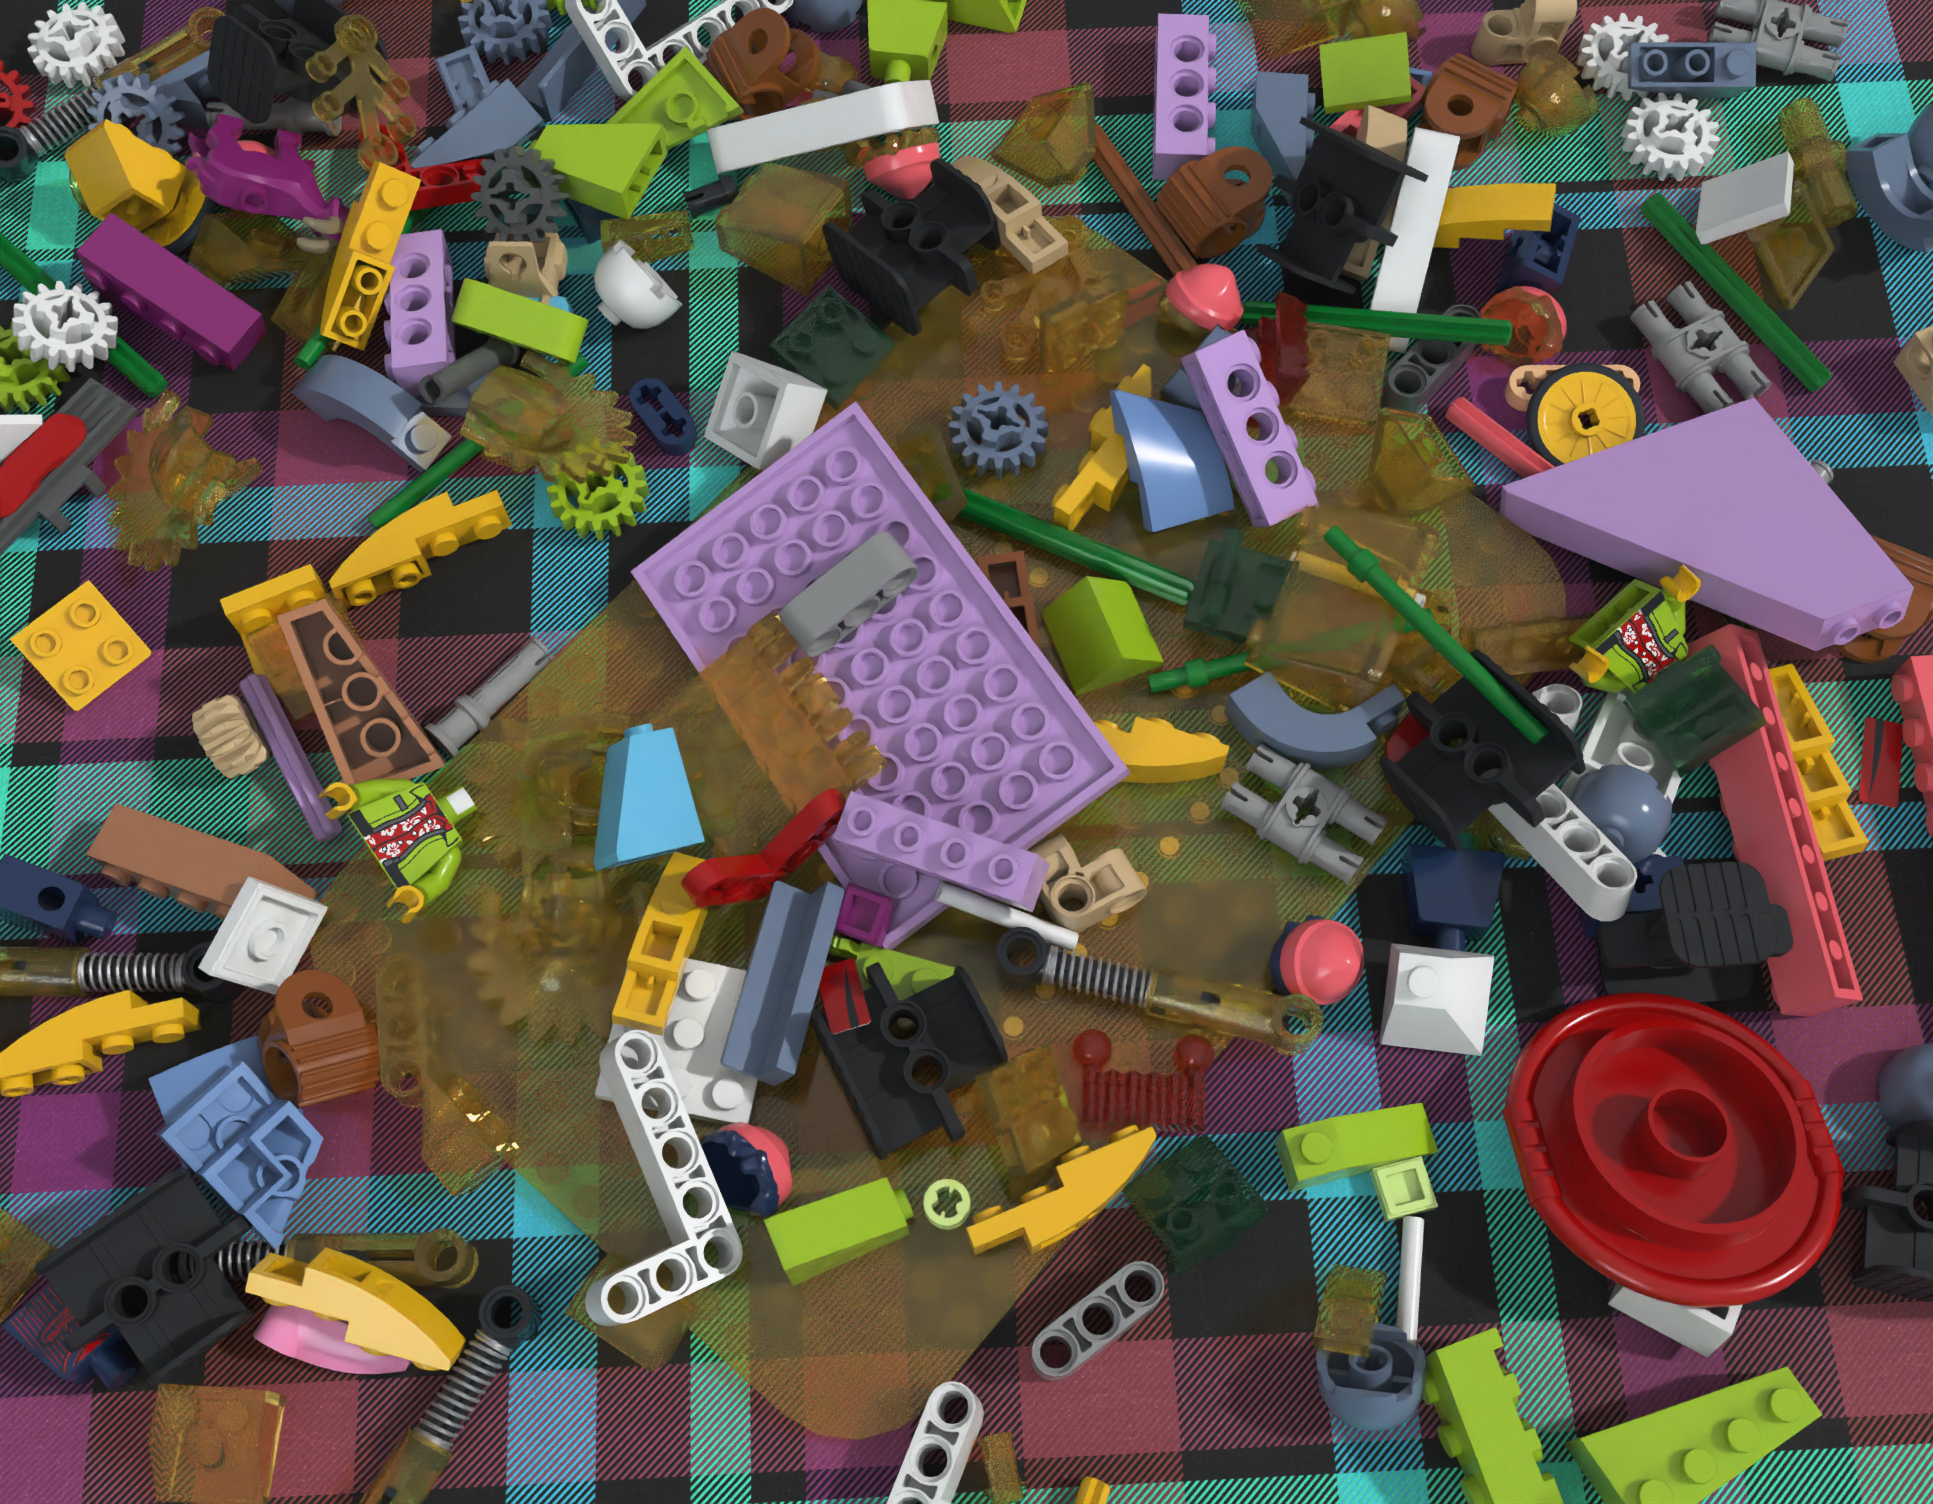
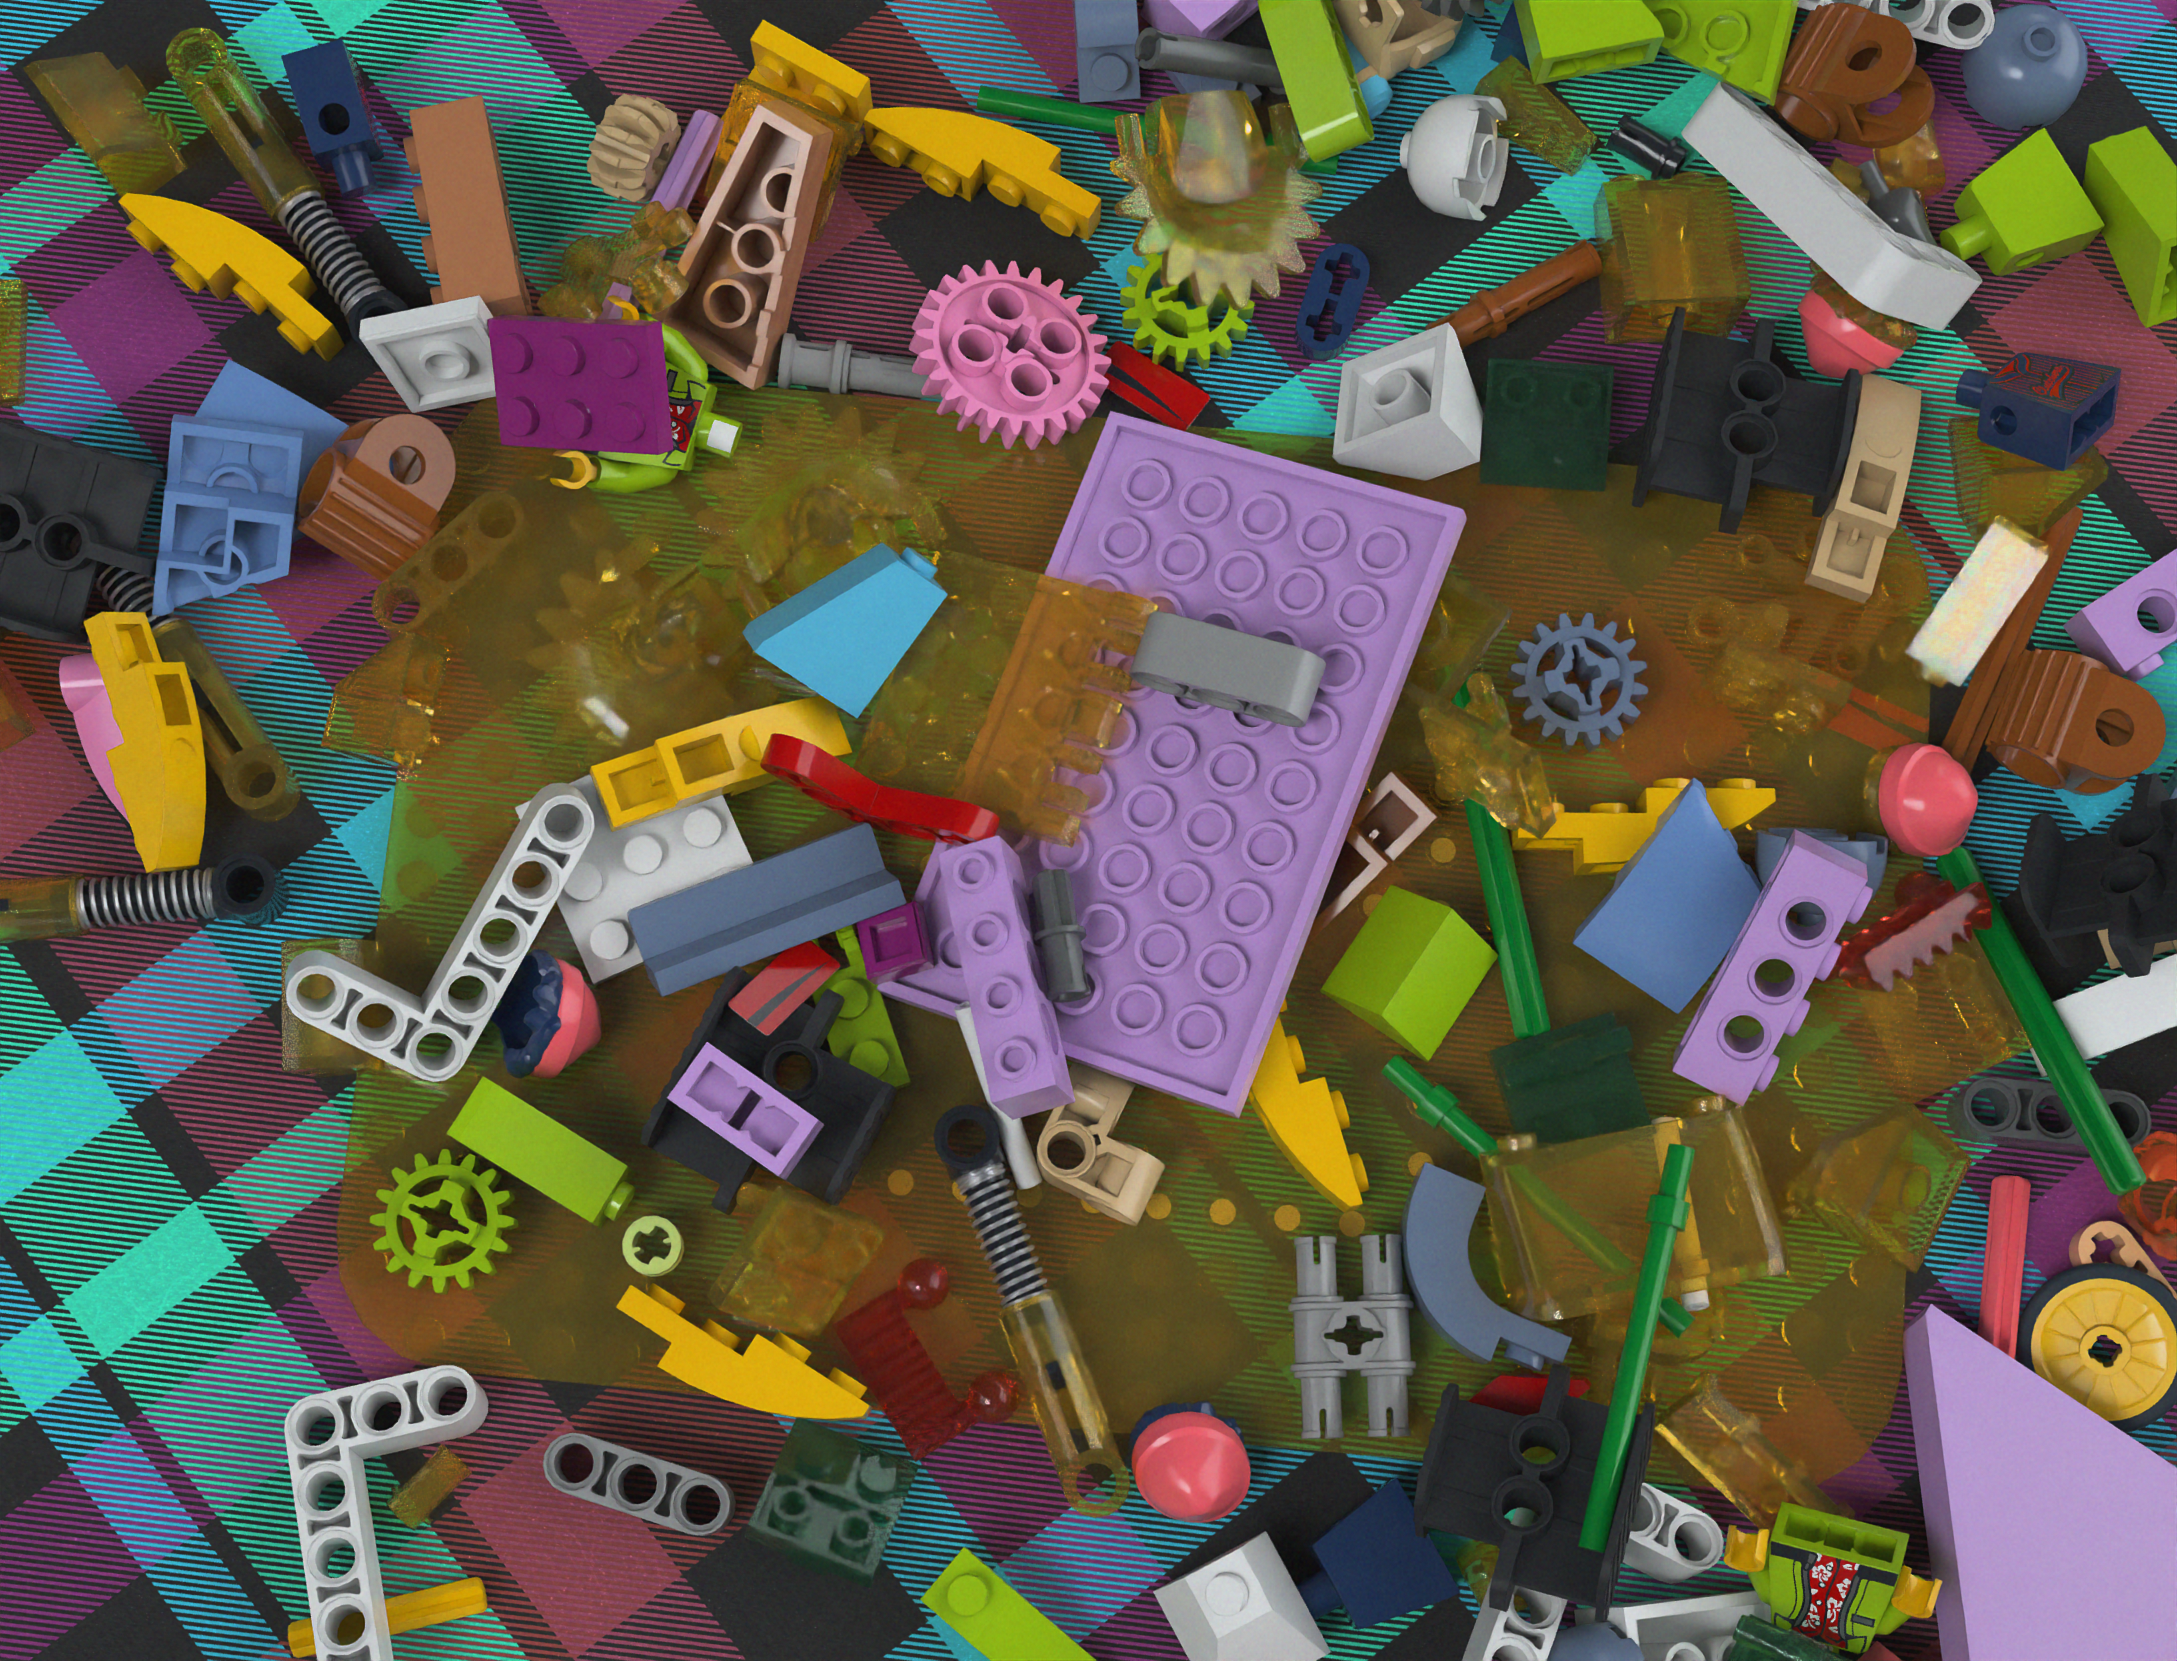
camera: 50 degrees right, 10 degrees up
(289, 811) = (596, 263): none -> clear yellow plant
(358, 853) = (581, 383): none -> magenta plate
(547, 606) = (1009, 354): none -> bright pink gear
(629, 547) = (1153, 387): none -> red sticker
(740, 332) = (1493, 310): none -> dark orange pin
(855, 1315) = (454, 1192): none -> lime gear
(914, 1059) = (745, 1111): none -> lavender brick
(938, 803) = (1060, 936): none -> dark grey axle
(1015, 492) = (1485, 763): none -> clear yellow plate
(1023, 98) = (2042, 406): none -> dark blue torso
(1114, 191) = (1977, 602): none -> clear yellow brick

